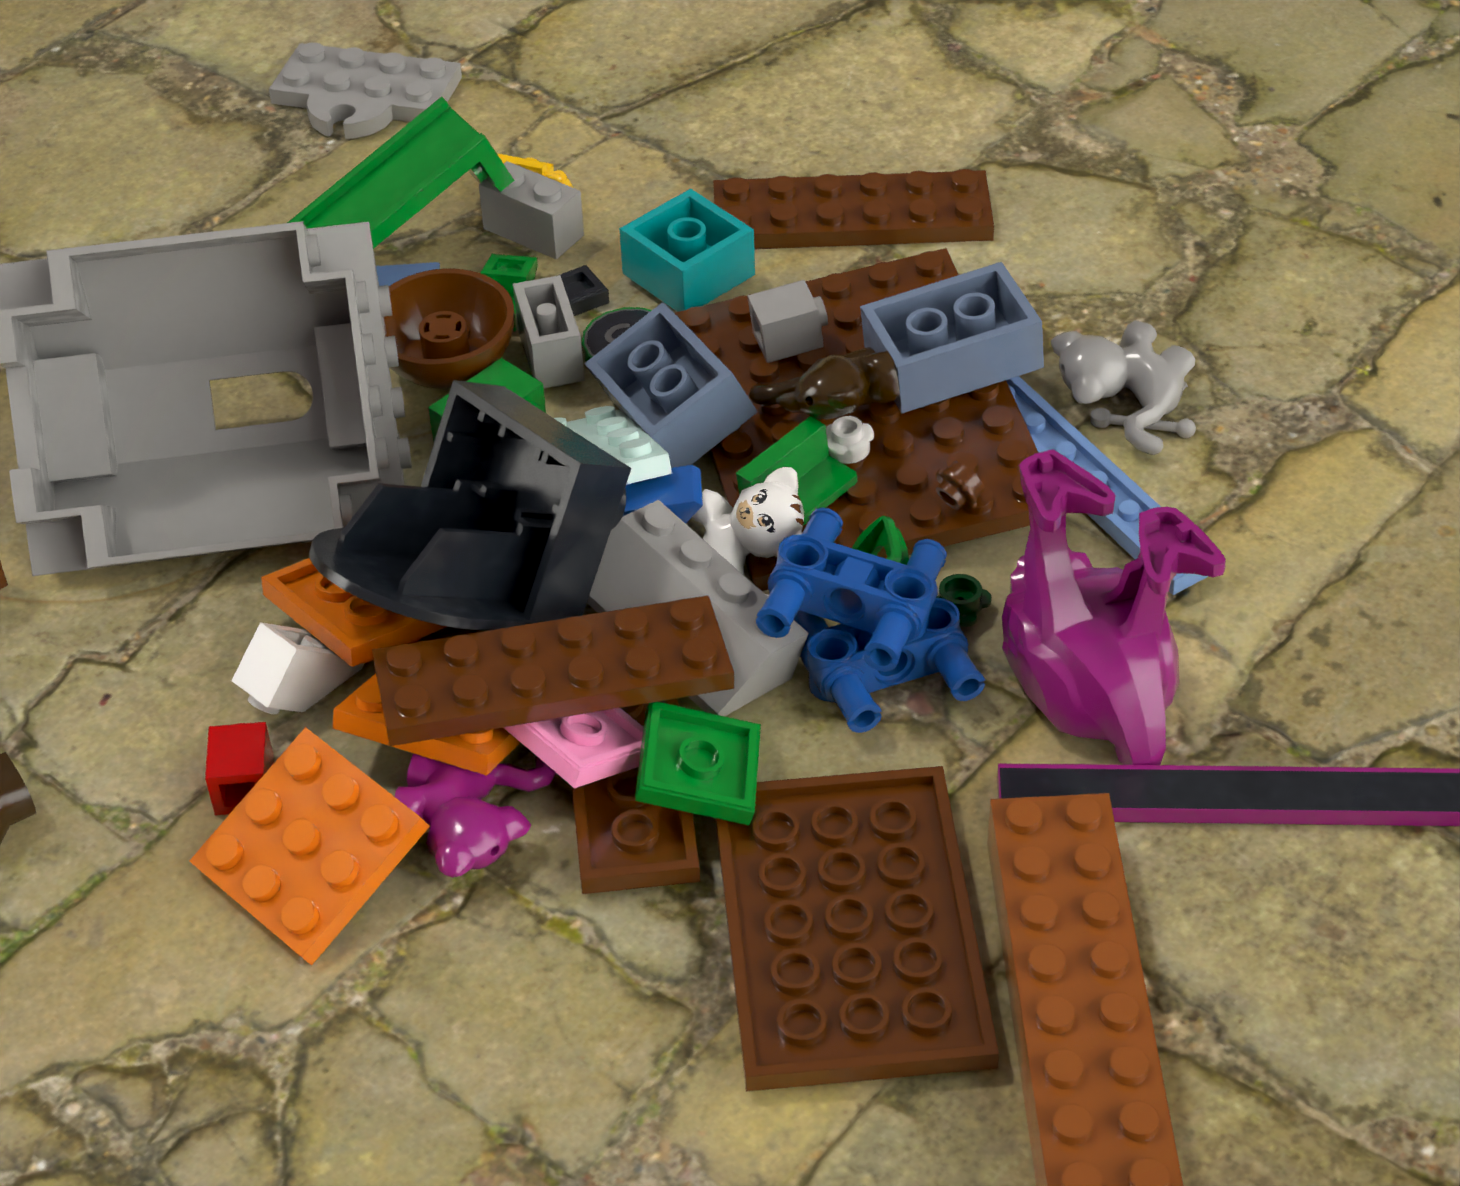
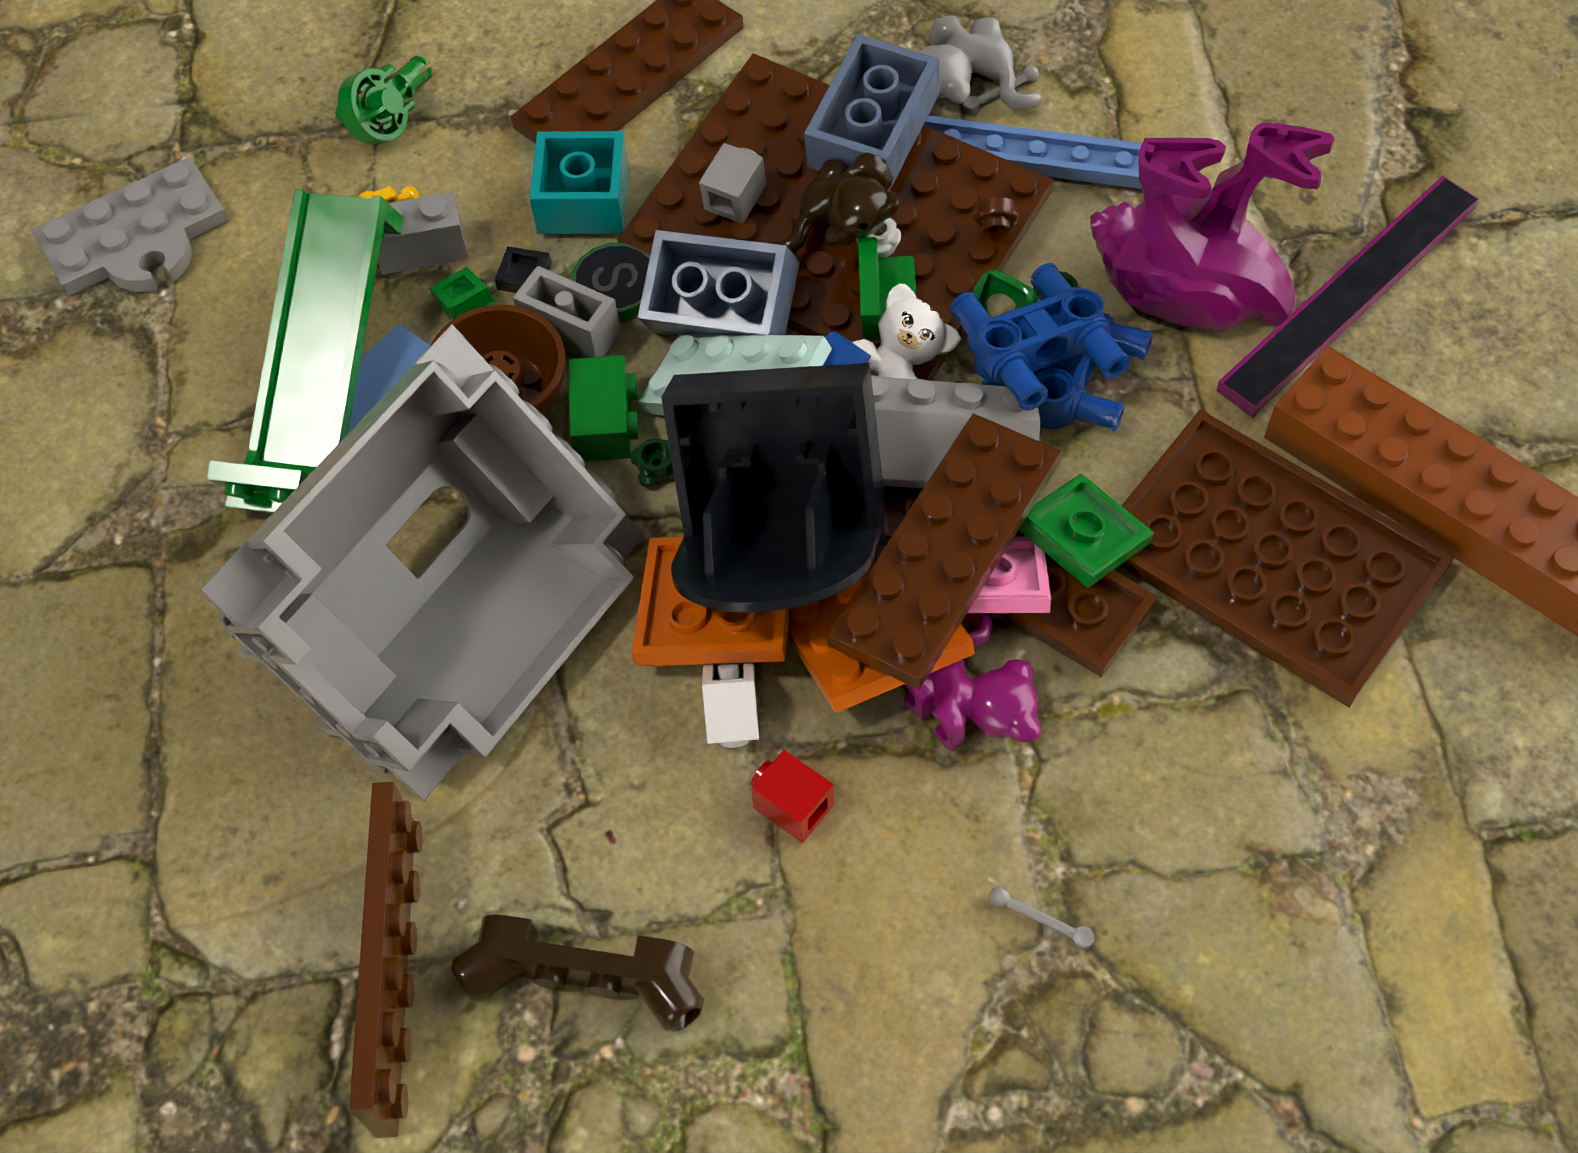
camera: 45 degrees left, 15 degrees up
(300, 1053) = (1081, 937): none -> light grey hinge
(309, 845) = (919, 803): orange plate -> none
(628, 105) = (381, 101): none -> green pin

